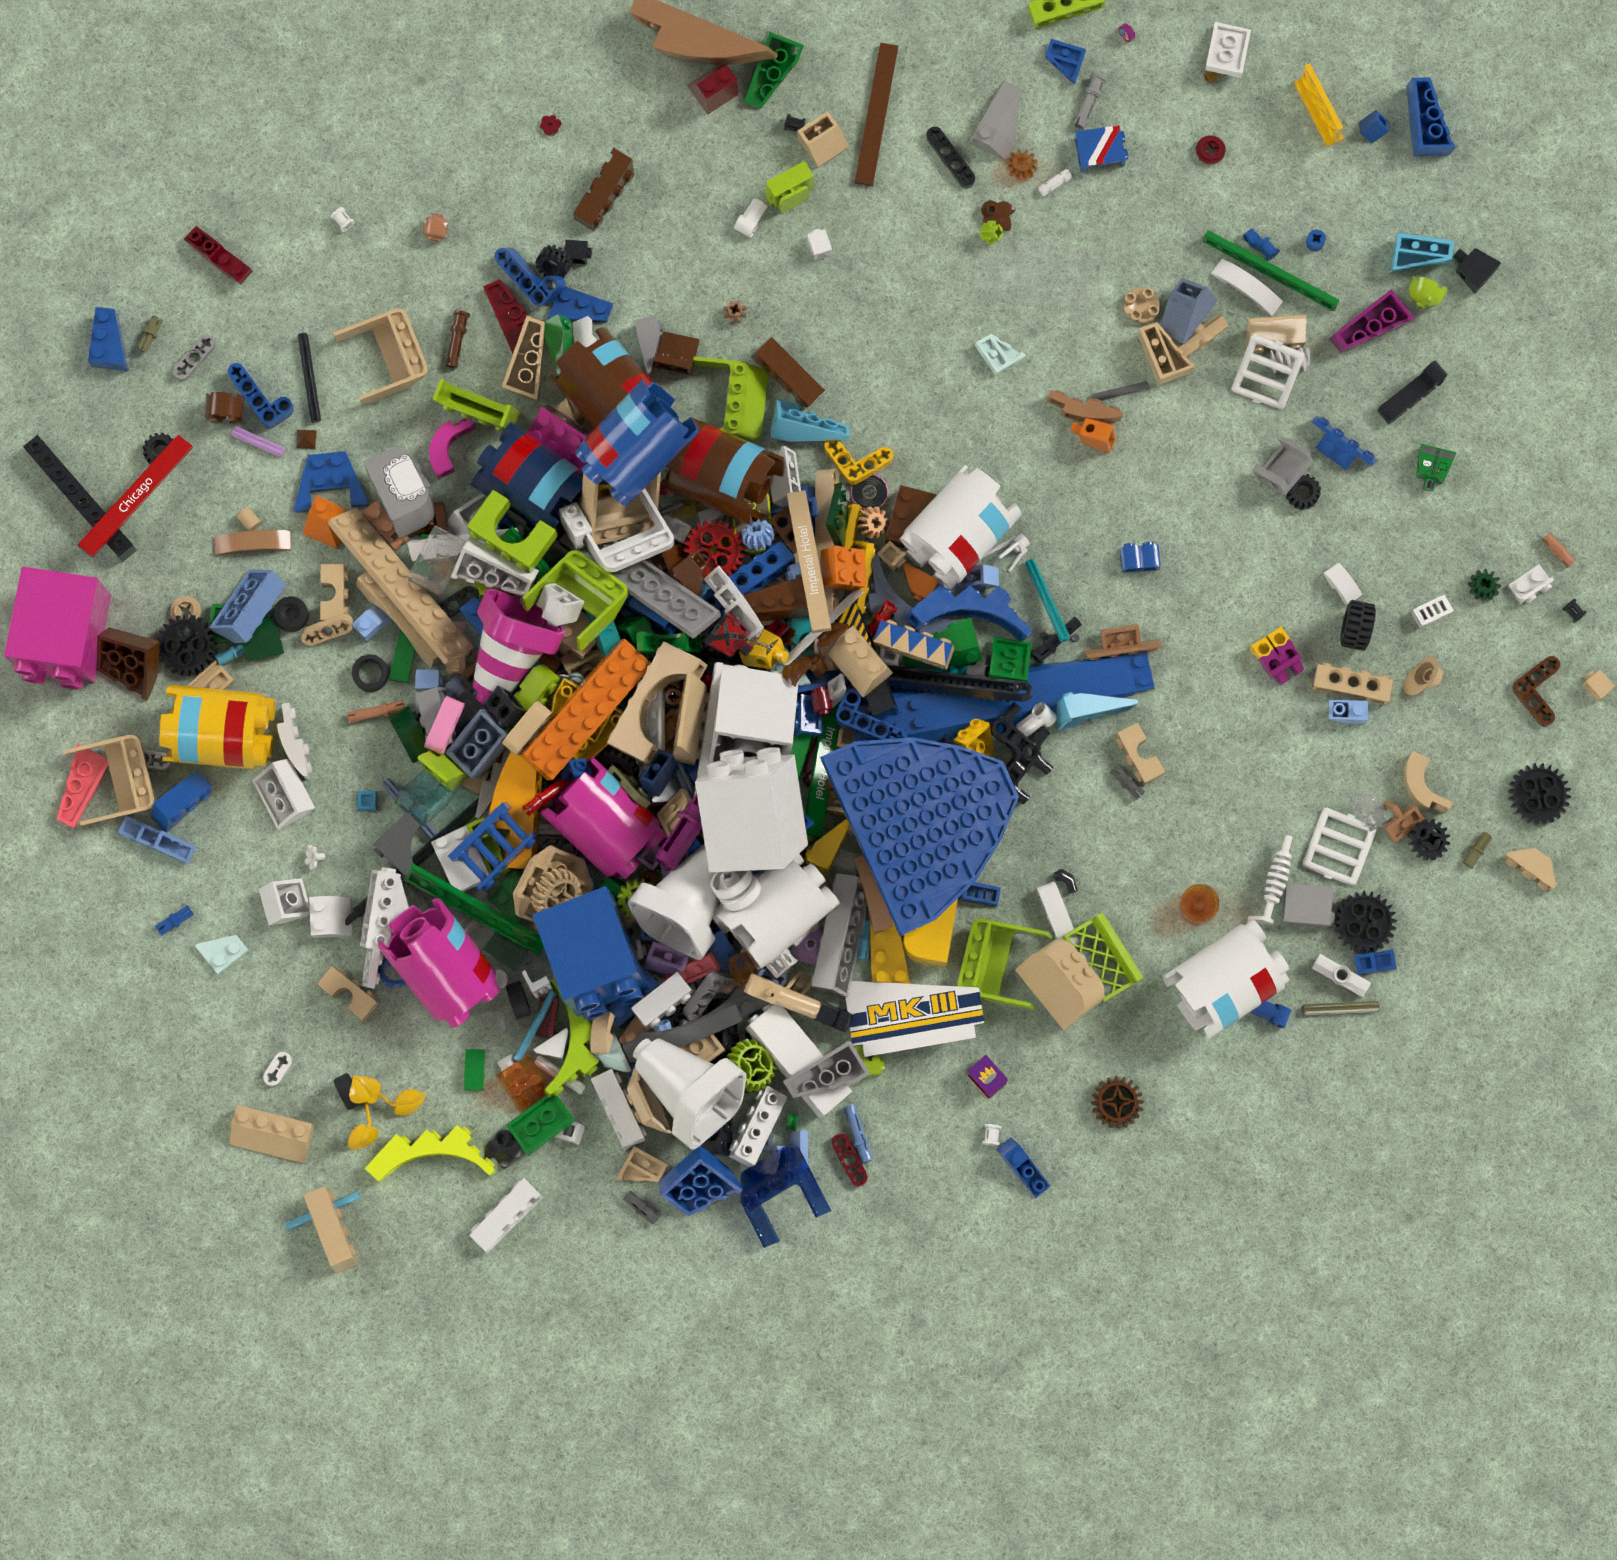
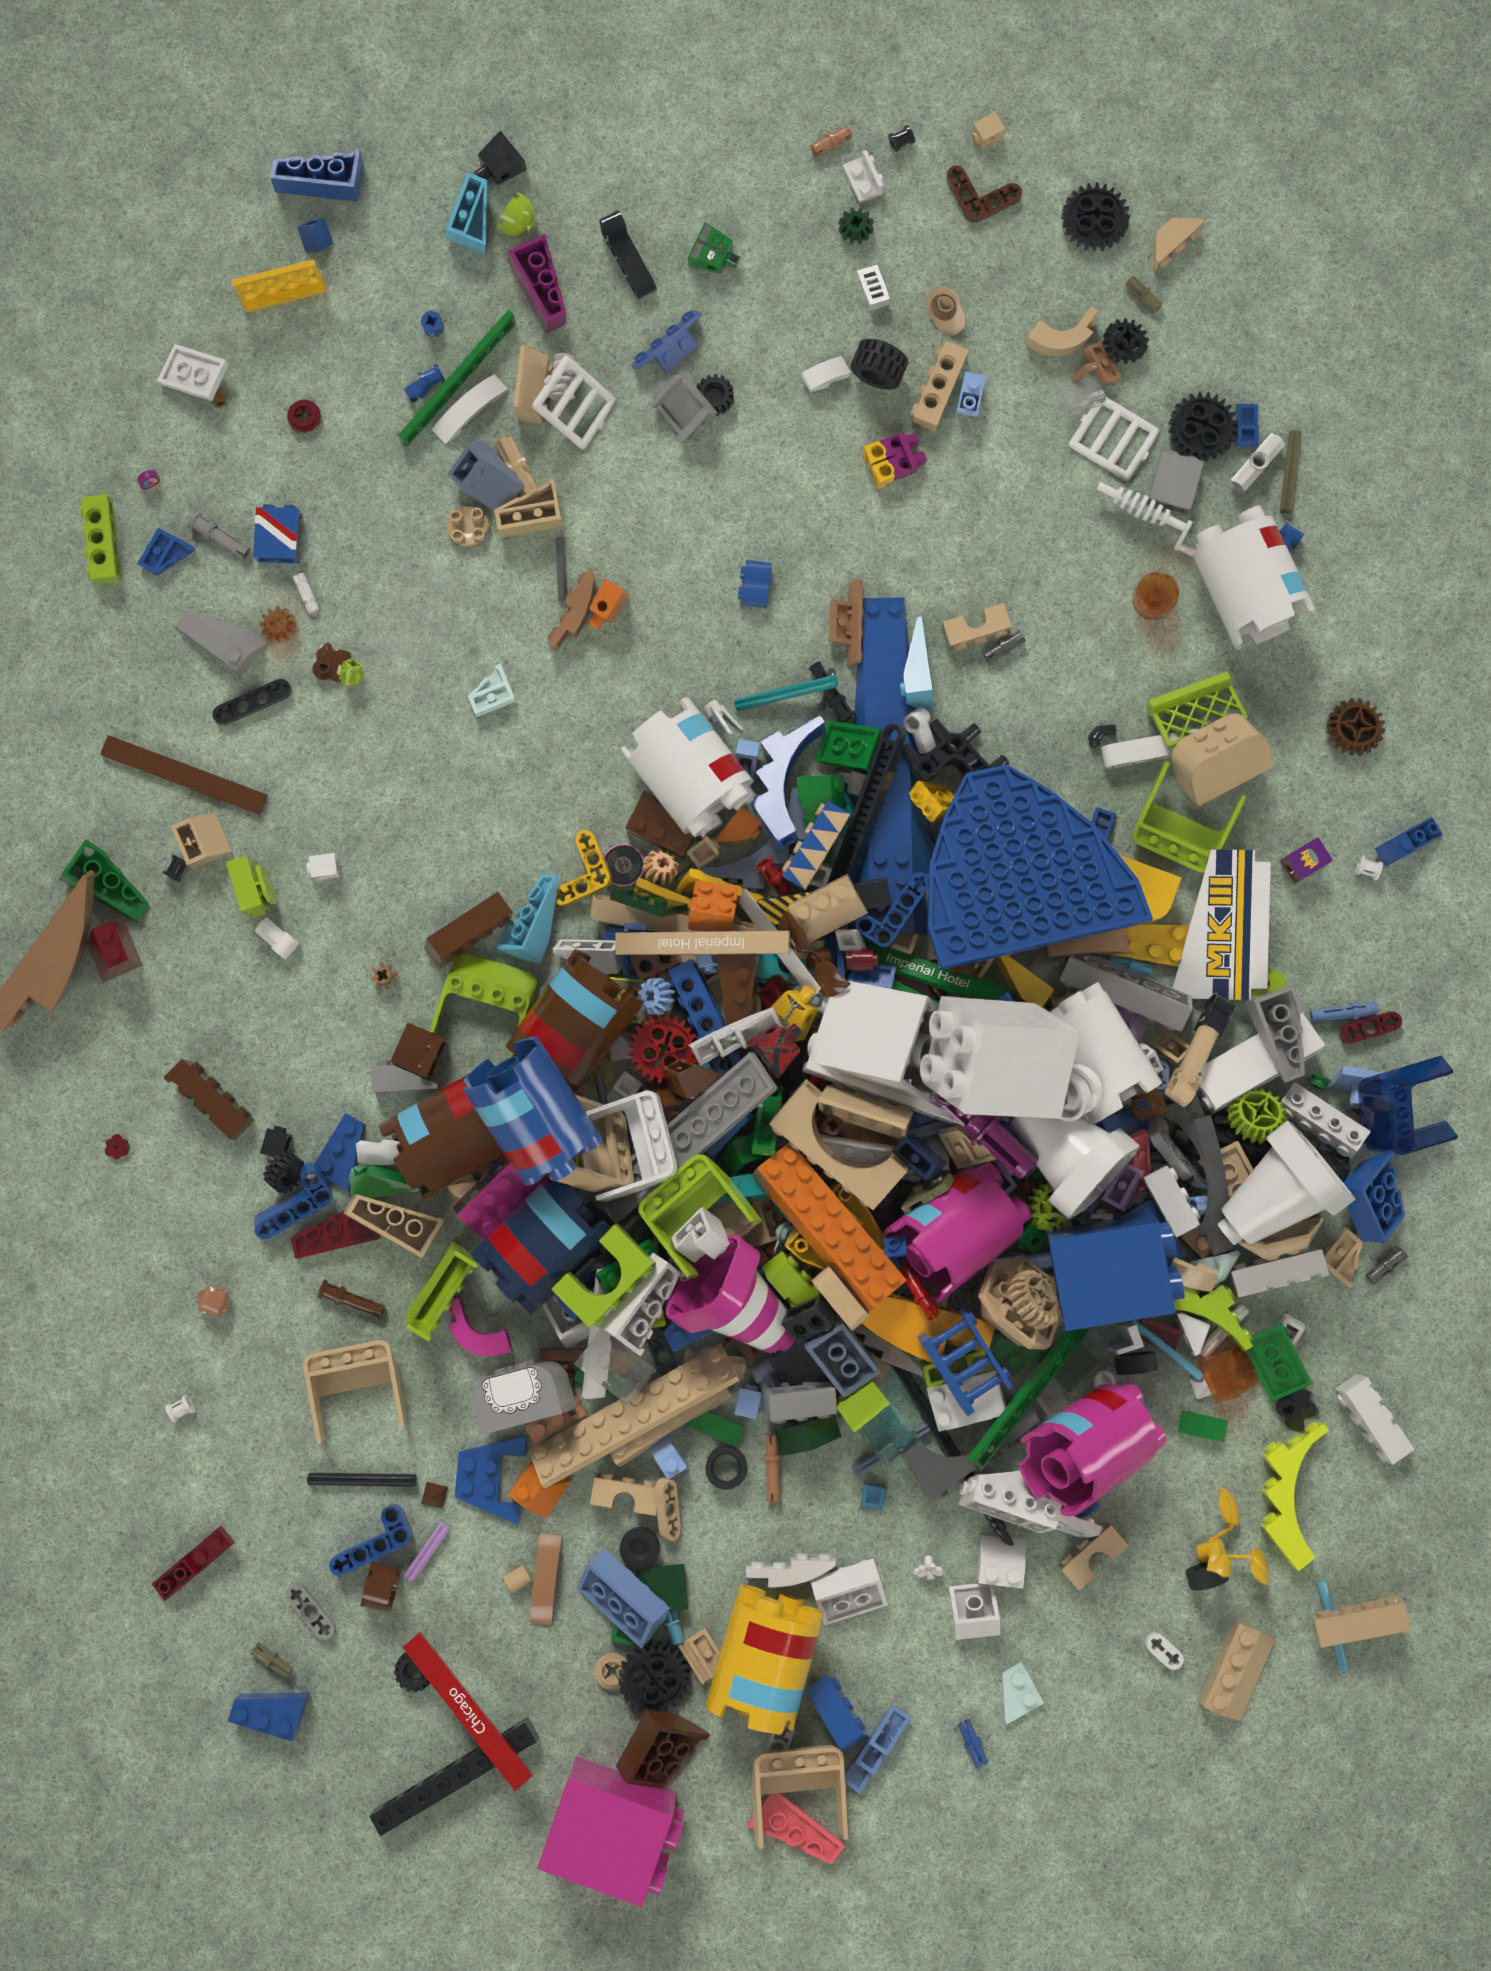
camera: 75 degrees left, 5 degrees up
(444, 725) = (816, 1394): bright pink beam -> none
(575, 524) = (608, 1201): white bracket -> none

